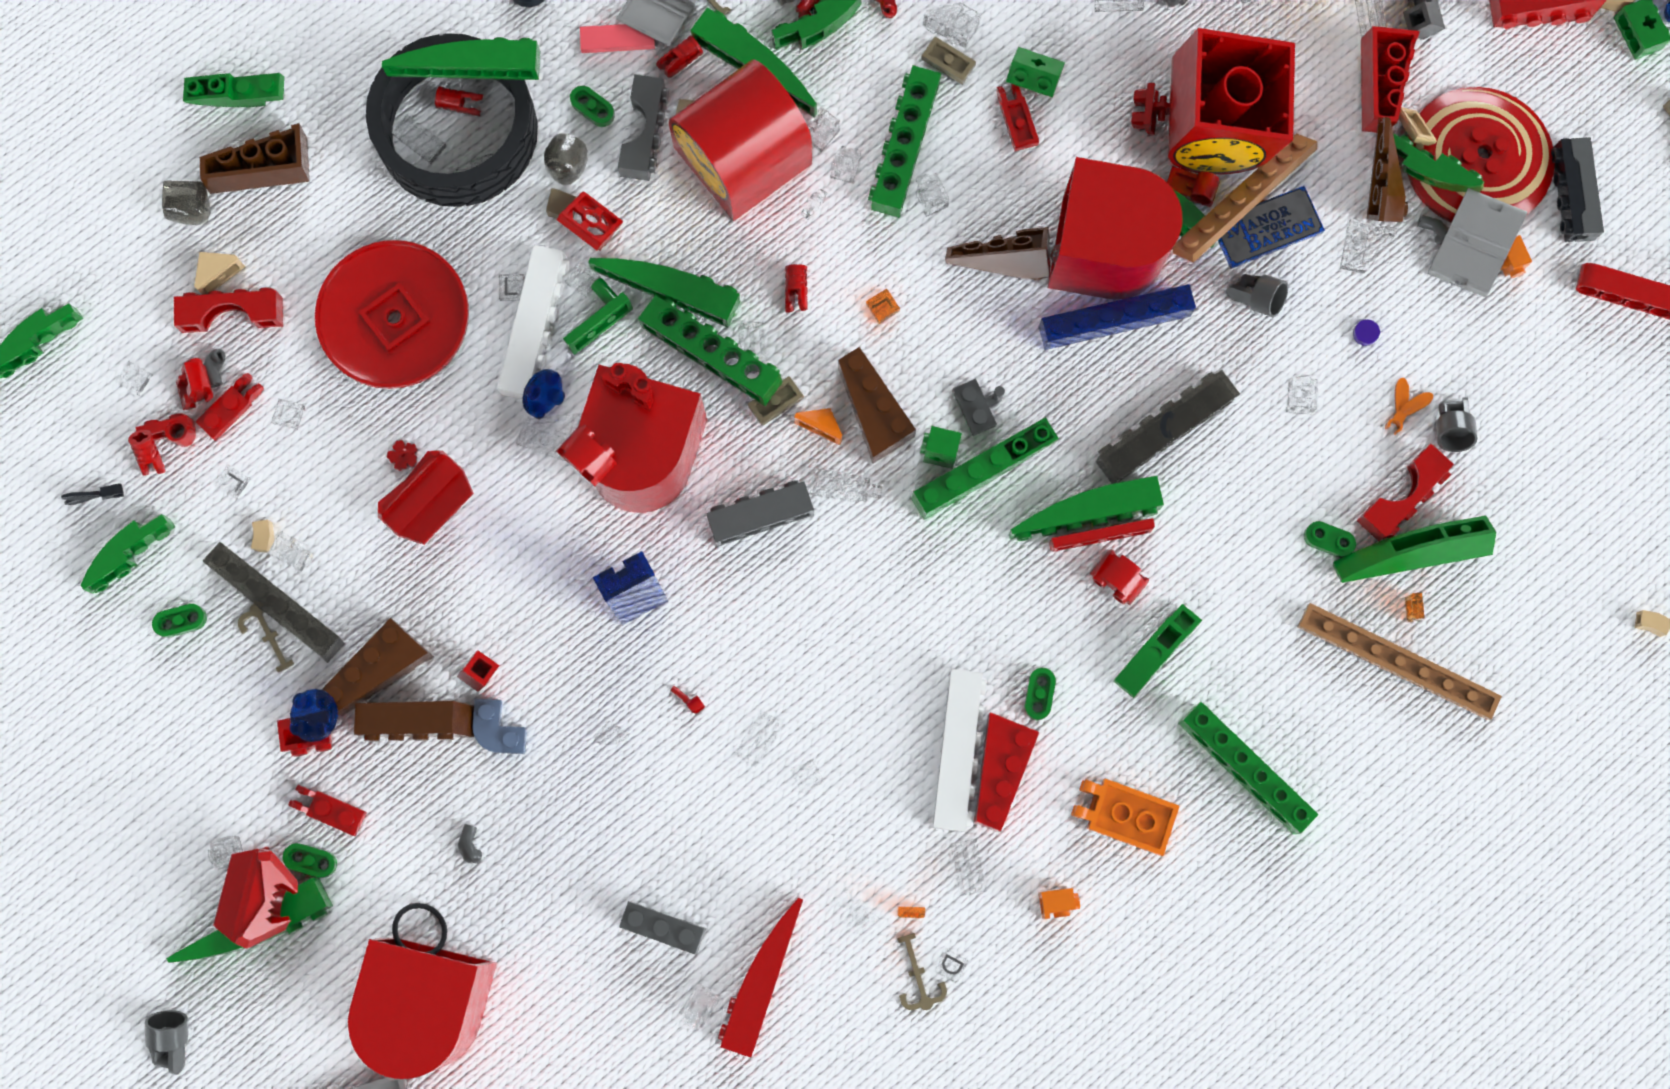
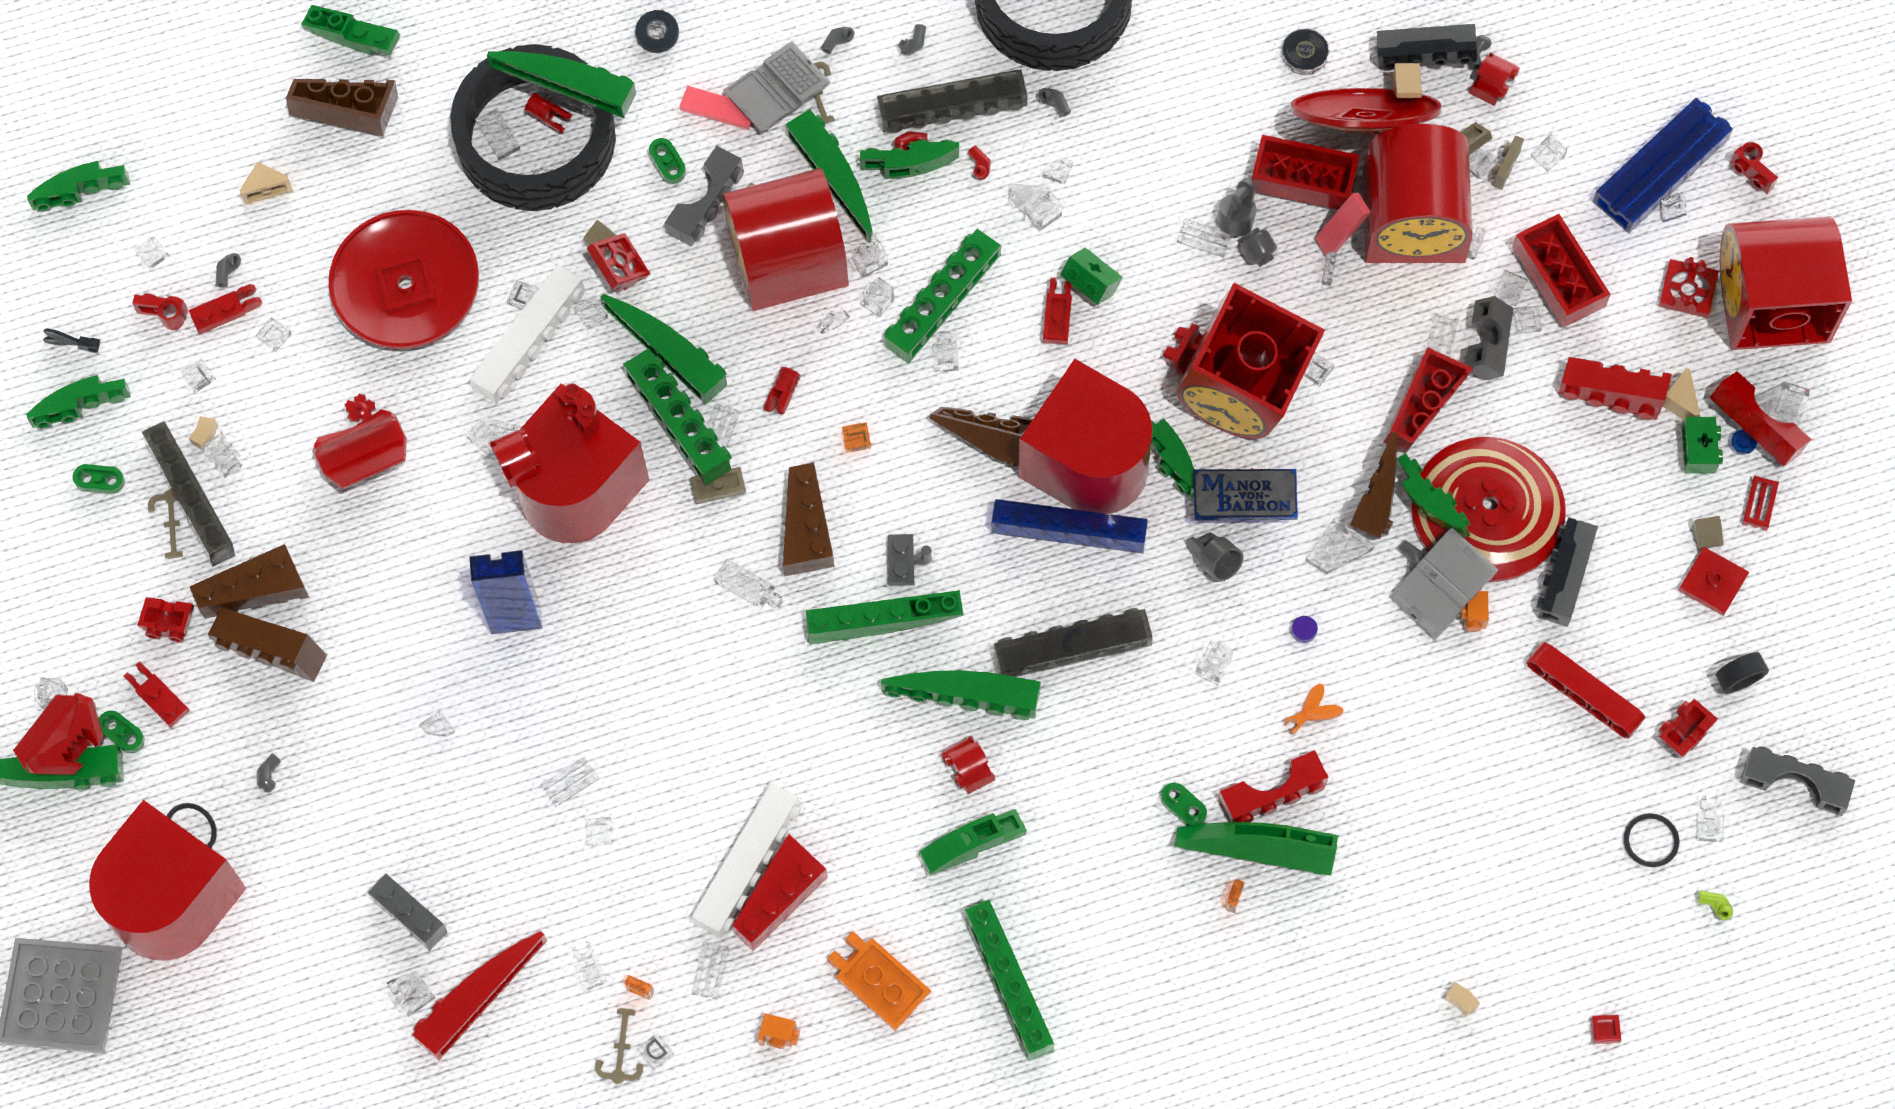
camera: 25 degrees right, 10 degrees down
(146, 451) = (134, 320): red hinge -> none
(185, 202) = (264, 114): clear smoke piece -> none
(193, 384) = (201, 276): red cylinder -> none
(197, 312) = (232, 214): red arch -> none
(313, 715) = (179, 601): clear blue dish -> none
(478, 671) = (342, 621): red brick -> none
(491, 734) = (330, 681): sand blue plate -> none
(542, 393) = (508, 398): clear blue dish -> none
(565, 158) = (621, 198): clear smoke piece -> none
(614, 309) = (607, 349): green piece -> none
(679, 57) = (766, 145): red hinge -> none
(695, 704) = (525, 728): red hand -> none
(760, 513) = (659, 579): dark grey brick -> none
(821, 423) = (751, 520): orange slope -> none
(940, 447) = (850, 580): green brick -> none
(948, 60) = (1016, 237): dark tan plate -> none
(1040, 694) = (844, 840): green plate -> none
(1101, 535) = (967, 718): red tile -> none
(1195, 187) = (1199, 436): red plate -> none
(1243, 198) = (1235, 459): medium nougat plate -> none
(1399, 661) = (1199, 940): medium nougat plate -> none
(1416, 127) = (1433, 455): tan tile -> none
(1455, 426) = (1348, 745): dark grey piece -> none

